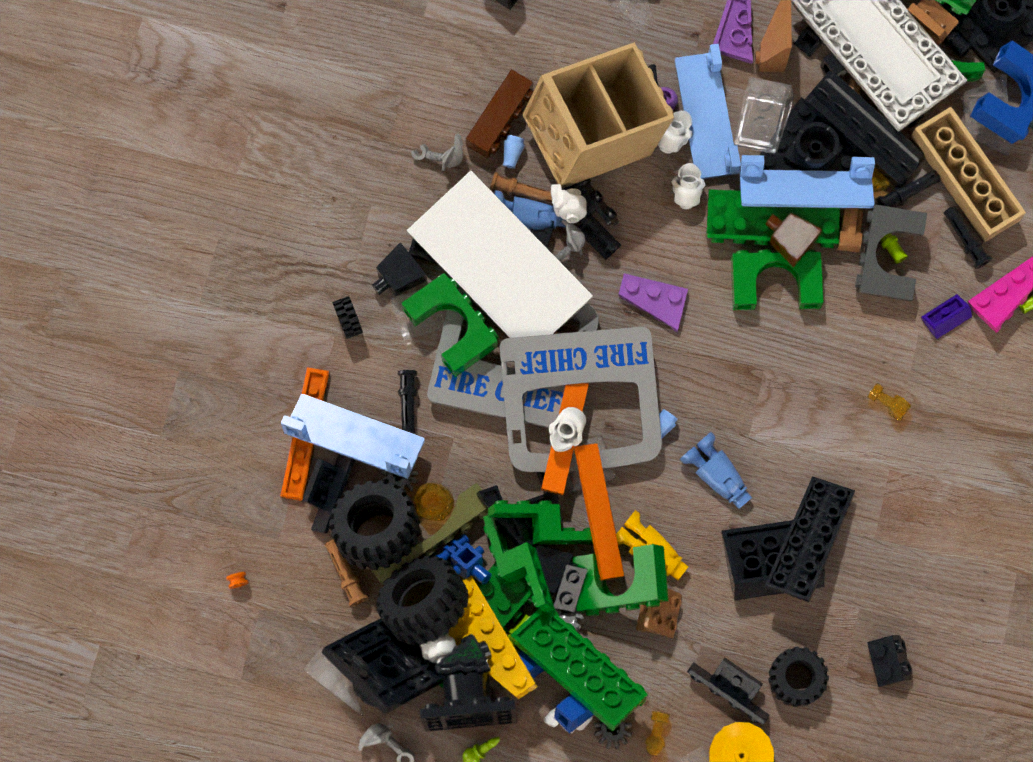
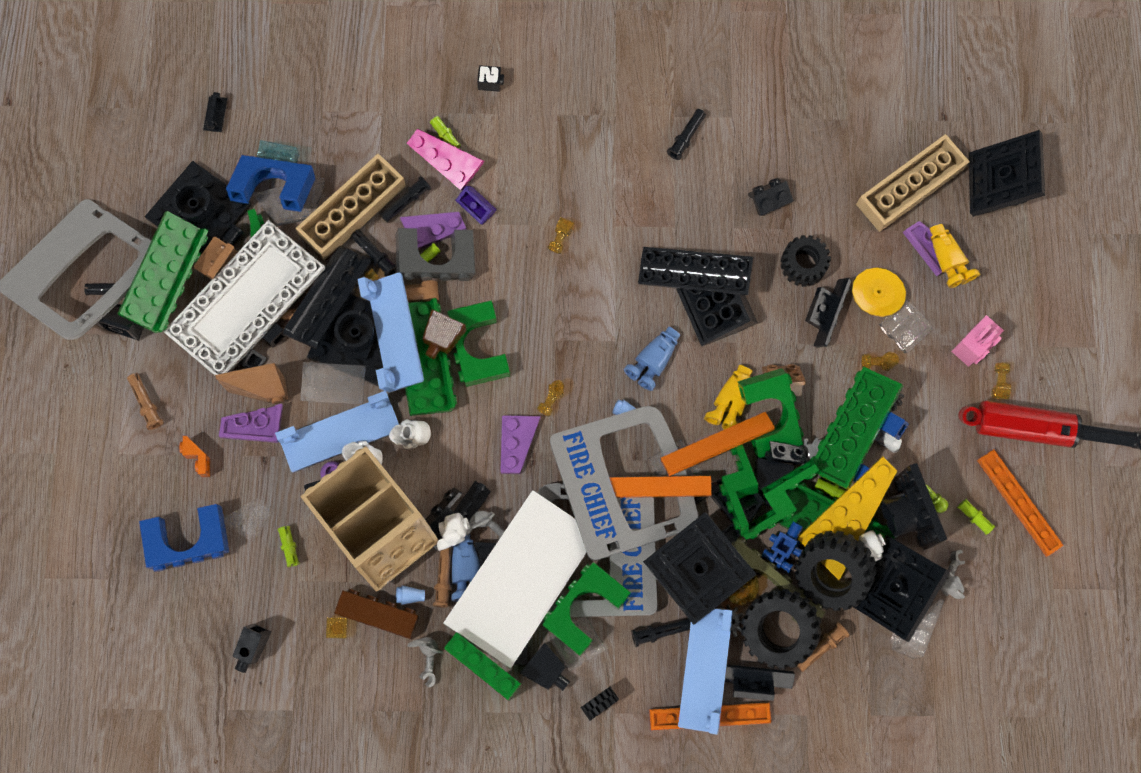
camera: 110 degrees left, 0 degrees up
(237, 580) = (854, 740): orange bush -> none
(394, 216) = (482, 666): none -> green arch
(466, 658) = (876, 519): black rock -> none
(468, 431) = (705, 547): none -> black piece
(495, 72) = (337, 628): none -> clear yellow plate
(567, 429) = (658, 483): white head -> none
(595, 40) = (288, 546): none -> lime pin
(703, 352) = (555, 391): none -> clear yellow leg
(926, 261) = (433, 227): none -> medium lavender wing
(981, 572) = (683, 140): none -> black pin

